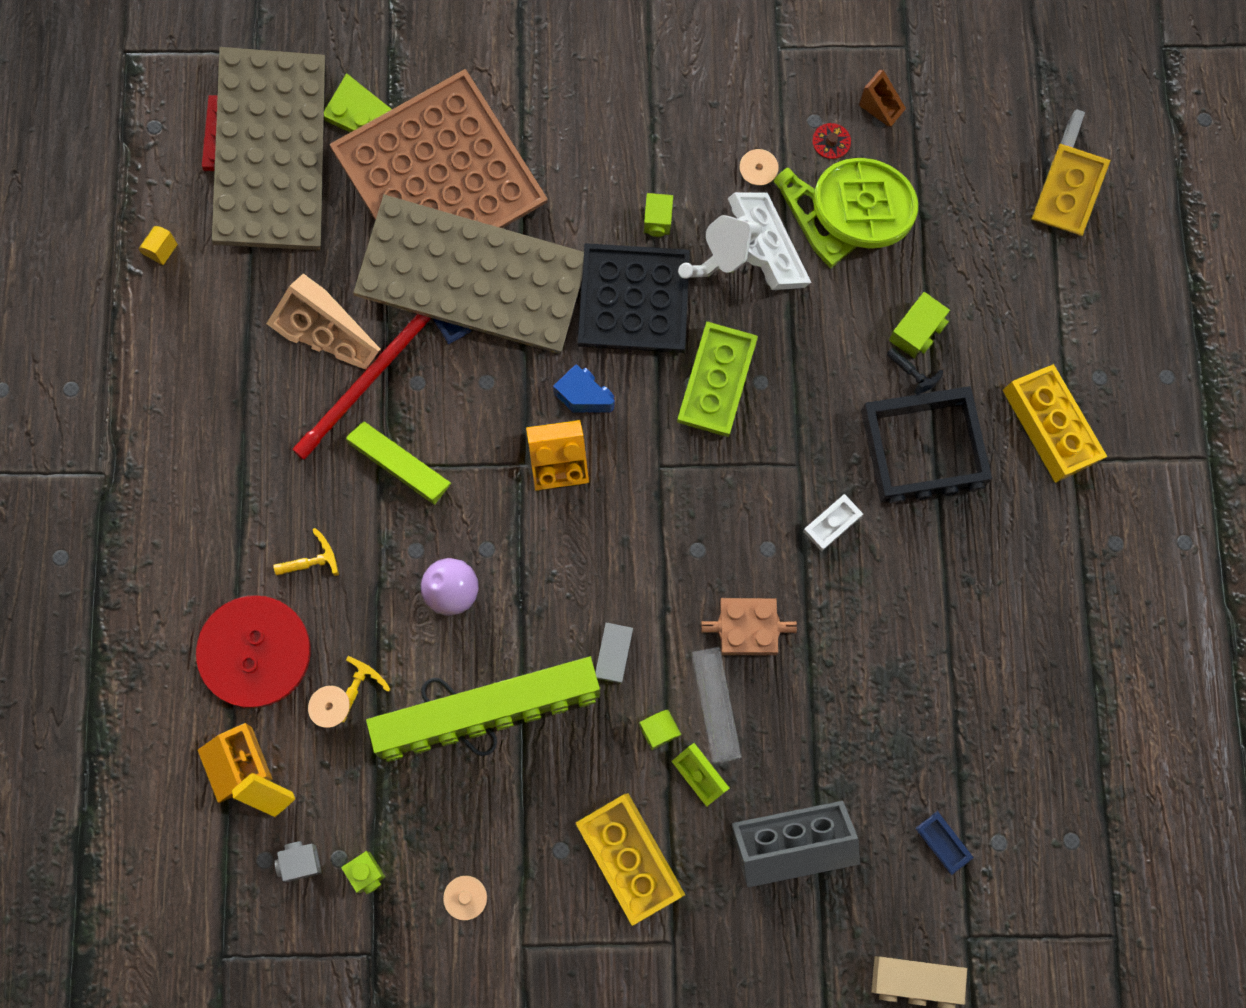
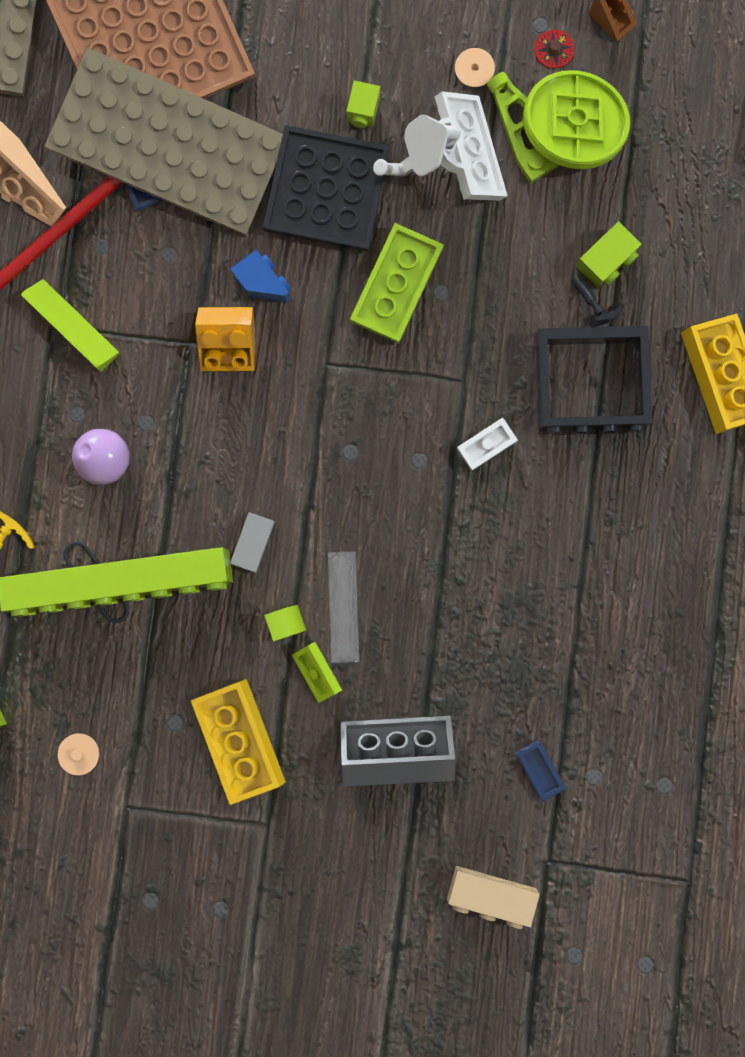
camera: 15 degrees right, 10 degrees up
(748, 626) = (387, 535): nougat plate -> none

